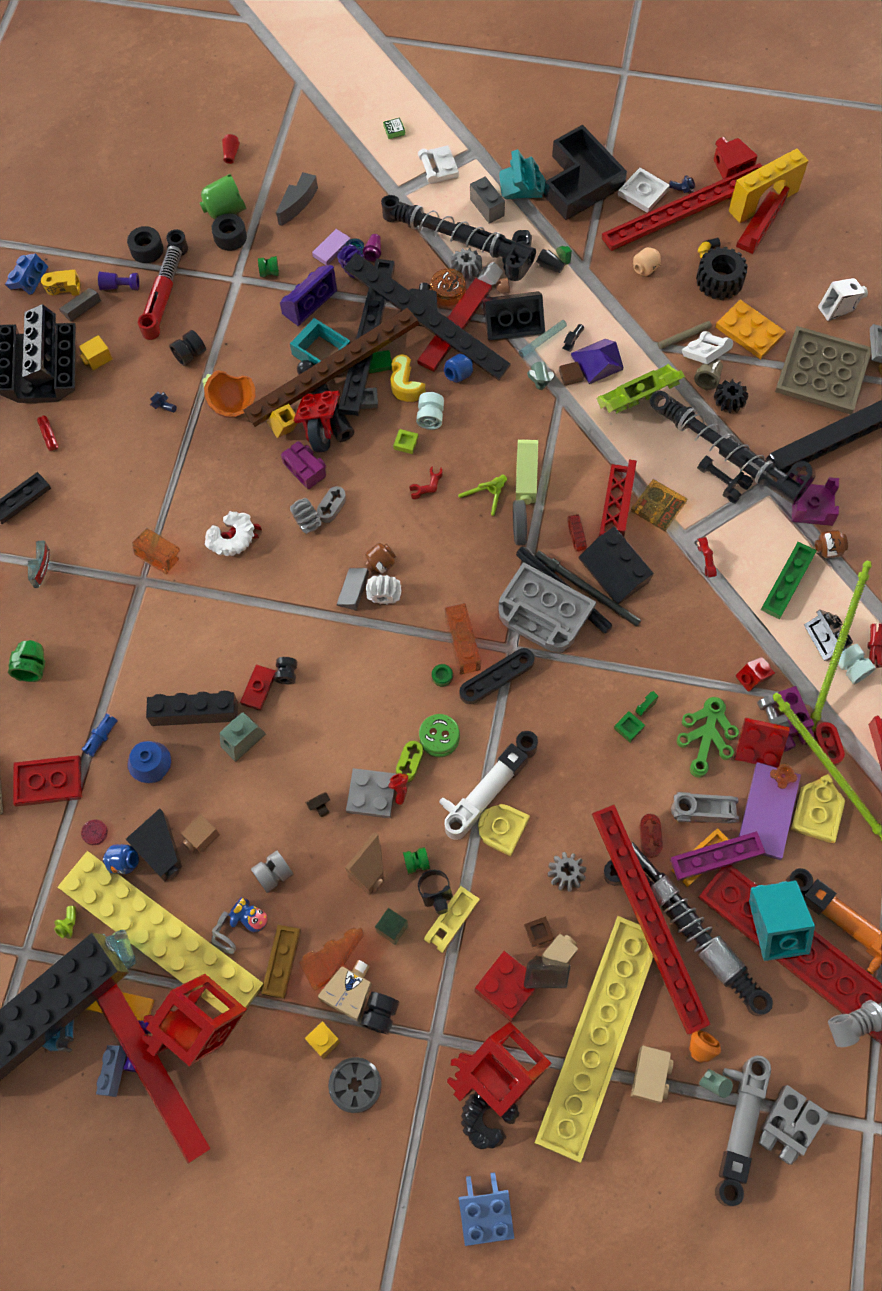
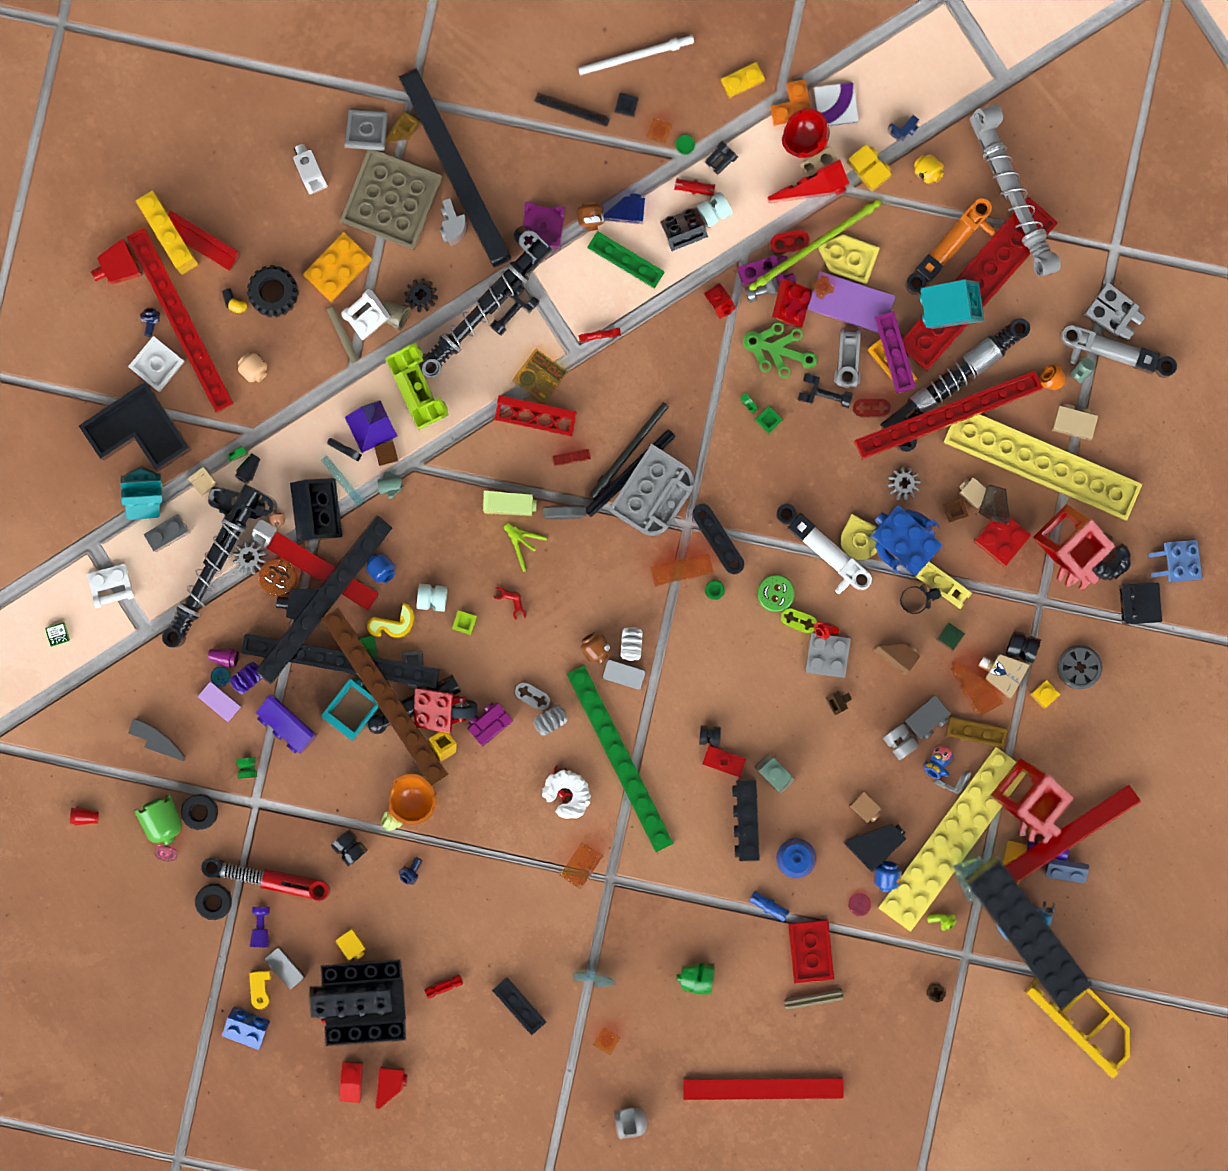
camera: 85 degrees left, 20 degrees up
(193, 209) = (165, 853): none -> clear pink piece
(264, 587) = (620, 759): none -> green plate
(298, 901) = (927, 717): none -> dark grey brick
(416, 860) = (892, 619): green wheel -> none
(432, 1162) = (1140, 603): none -> black bracket
(503, 870) = (903, 539): none -> blue torso
(539, 226) = (202, 481): none -> tan panel
(616, 565) = (610, 422): black slope -> none
(658, 805) = (844, 399): none -> black bar
(806, 416) = (453, 227): none -> light grey brick
(841, 578) = (627, 210): none -> clear blue slope
(862, 577) = (652, 200): lime hose -> none

